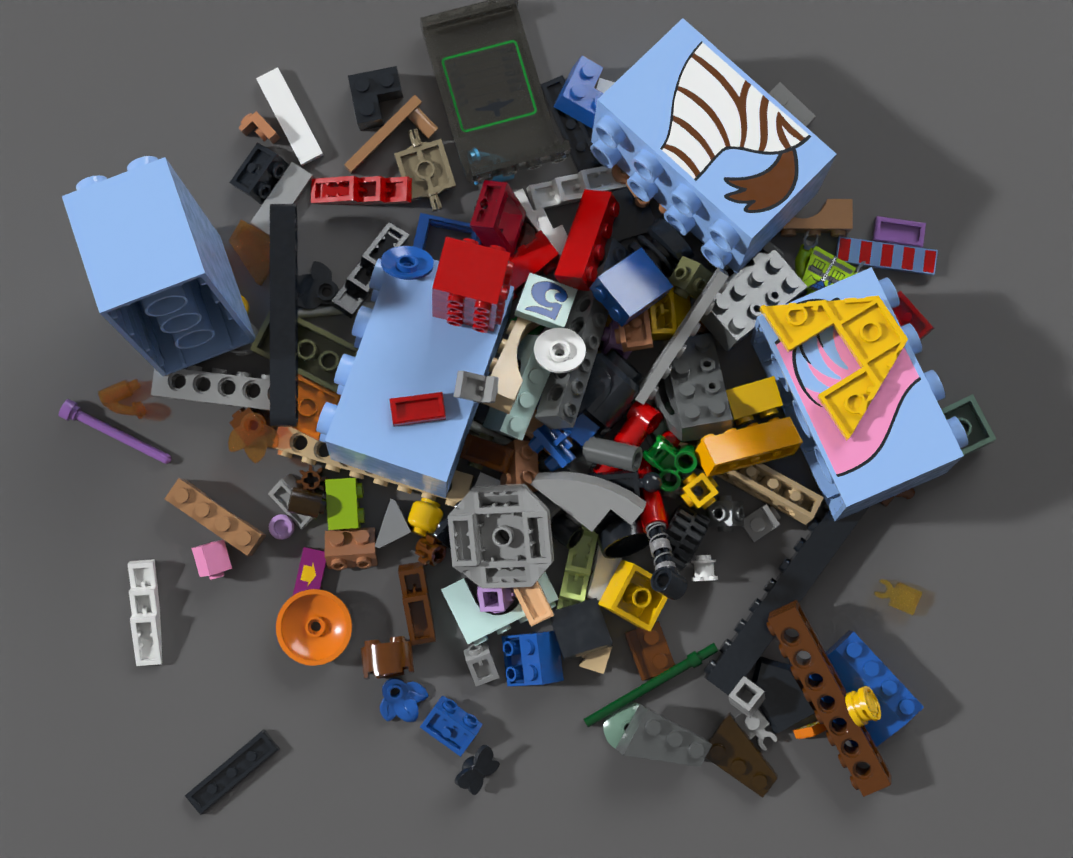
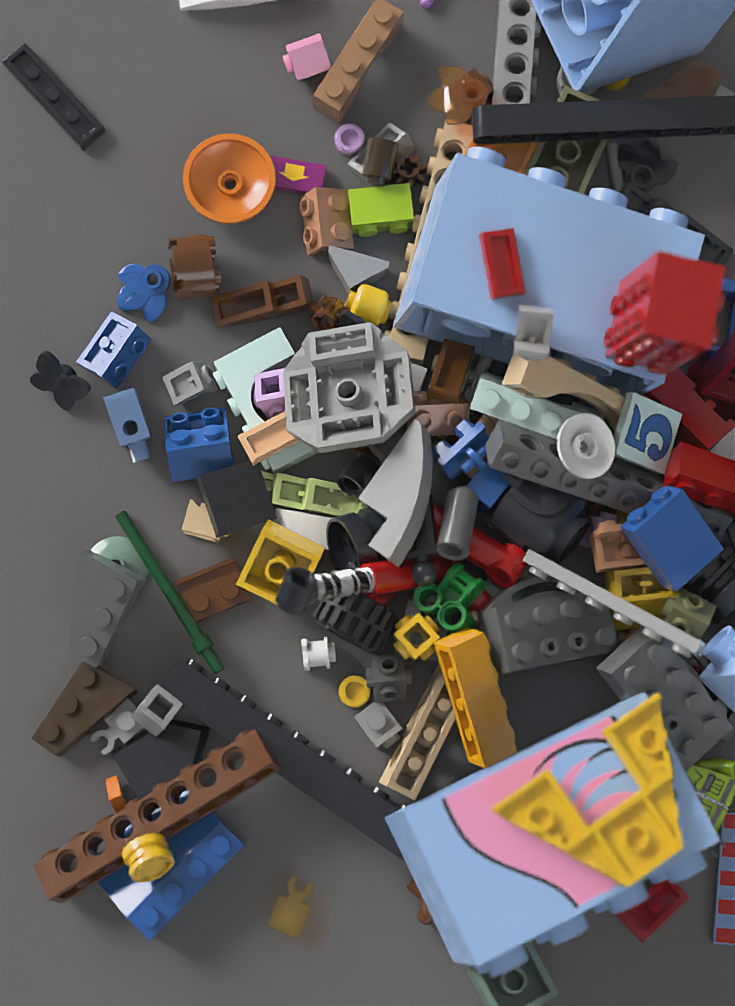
camera: 80 degrees right, 5 degrees down
(407, 262) = (686, 237): blue dish -> none
(503, 715) = (127, 408): none -> medium blue torso
(733, 541) = (354, 691): none -> yellow tile
(754, 399) = (534, 704): yellow brick -> none

